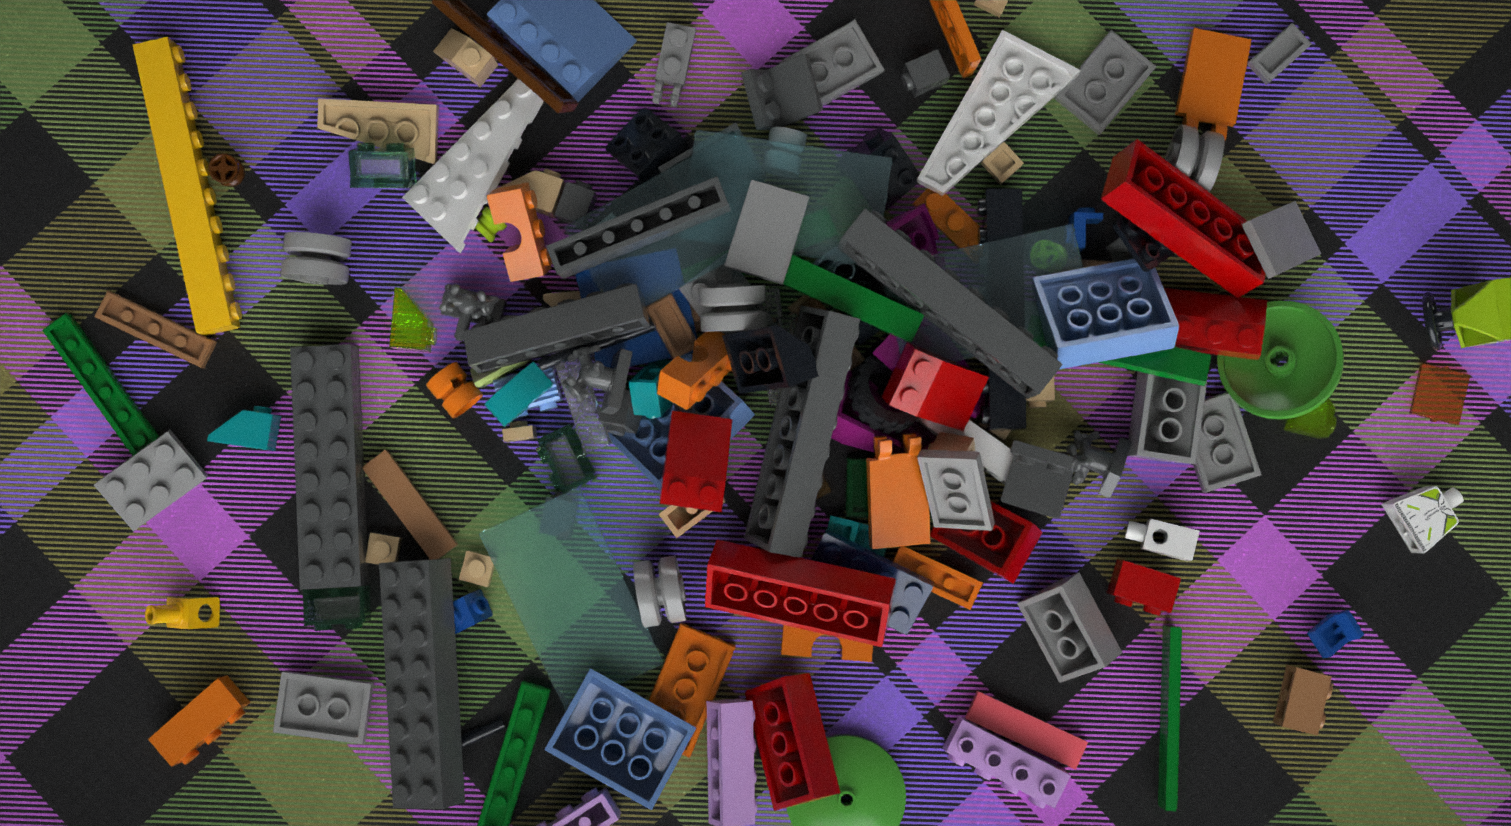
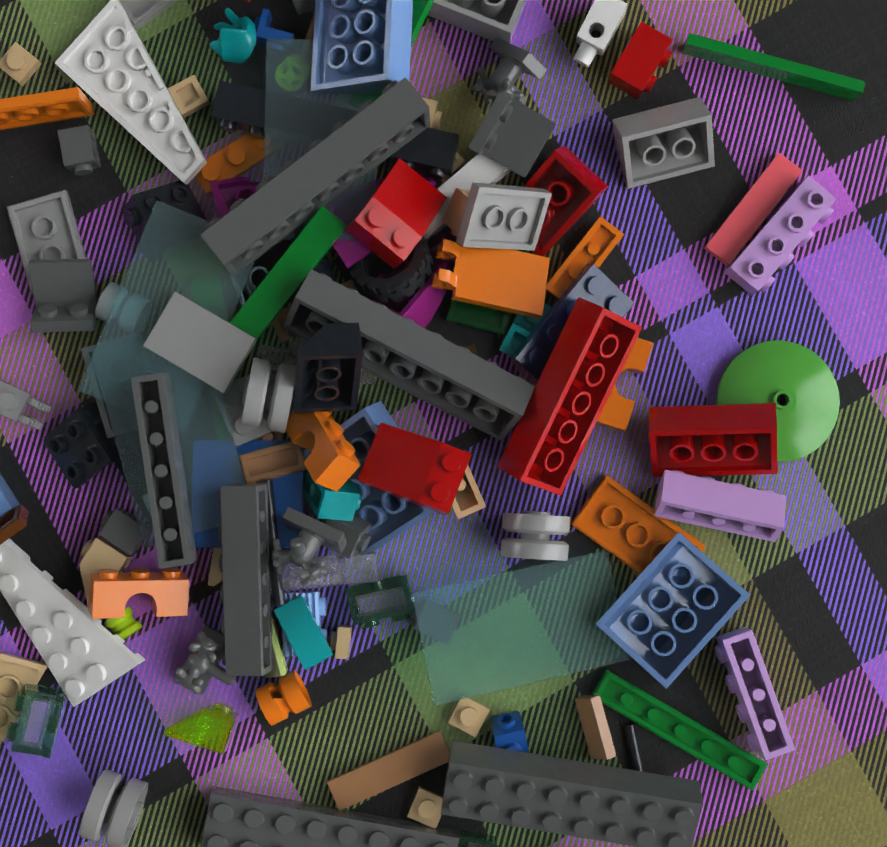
camera: 75 degrees left, 0 degrees up
(493, 691) = (595, 727): none -> medium nougat tile
(1061, 193) = (235, 40): none -> teal piece

